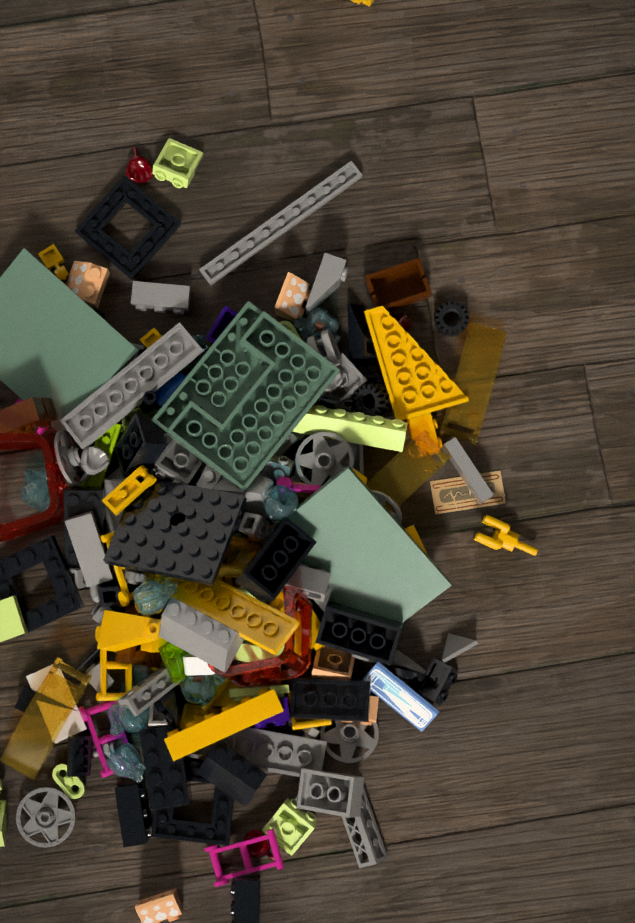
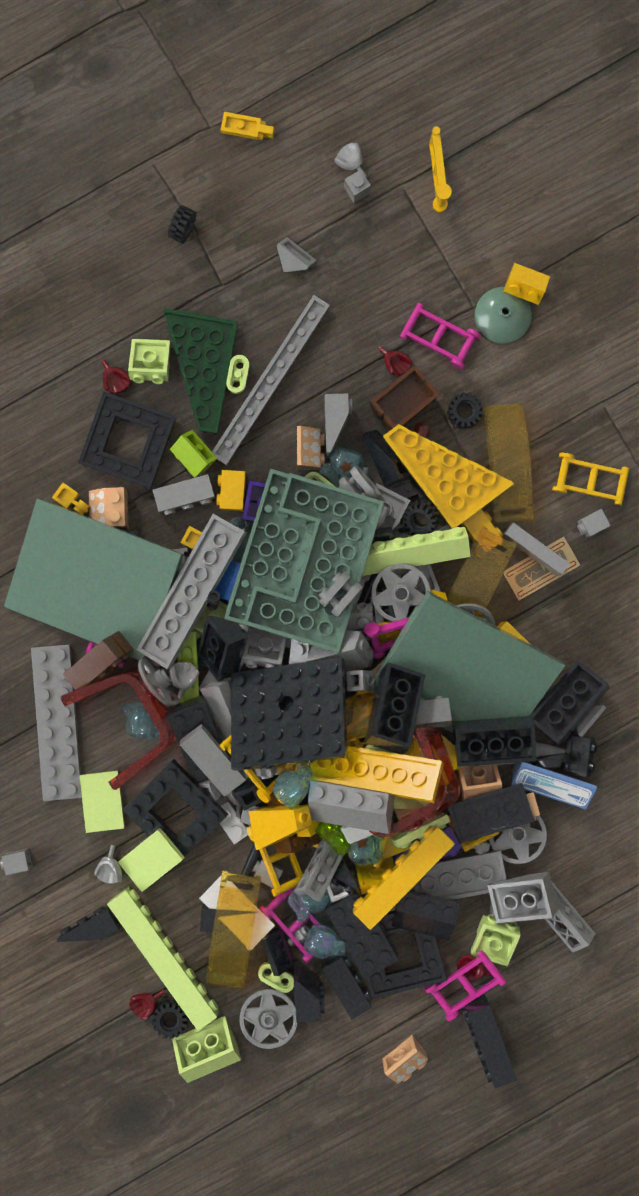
camera: 25 degrees left, 5 degrees up
(83, 620) = (232, 824): none -> white plate
(91, 801) = (308, 994): none -> black slope
(129, 490) = (228, 692): yellow plate -> none
(183, 262) = (193, 453): none -> lime brick
(206, 310) = (232, 490): none -> yellow brick
(229, 179) = (204, 356): none -> dark green wing
(253, 207) = (237, 375): none -> yellowish green plate
(255, 52) = (182, 224): none -> black tyre
(255, 434) = (339, 581): none -> light grey brick
(280, 503) = (377, 650): clear light blue piece -> none
(346, 119) = (293, 257): none -> light grey slope
(404, 249) = (396, 361): none -> dark red piece
(429, 78) = (357, 186): none -> light grey brick
(433, 50) = (350, 157): none -> light grey piece
(444, 626) = (569, 703): none -> black brick
(460, 270) = (456, 361): none -> dark pink piece
(502, 537) = (591, 599): yellow plant -> none
(504, 110) = (442, 190): none -> yellow piece
(515, 424) = (569, 459): none -> yellow piece
(520, 257) = (500, 327): none -> sand green dish
(531, 467) = (593, 523): none -> light grey brick
(552, 223) = (526, 283): none -> yellow brick

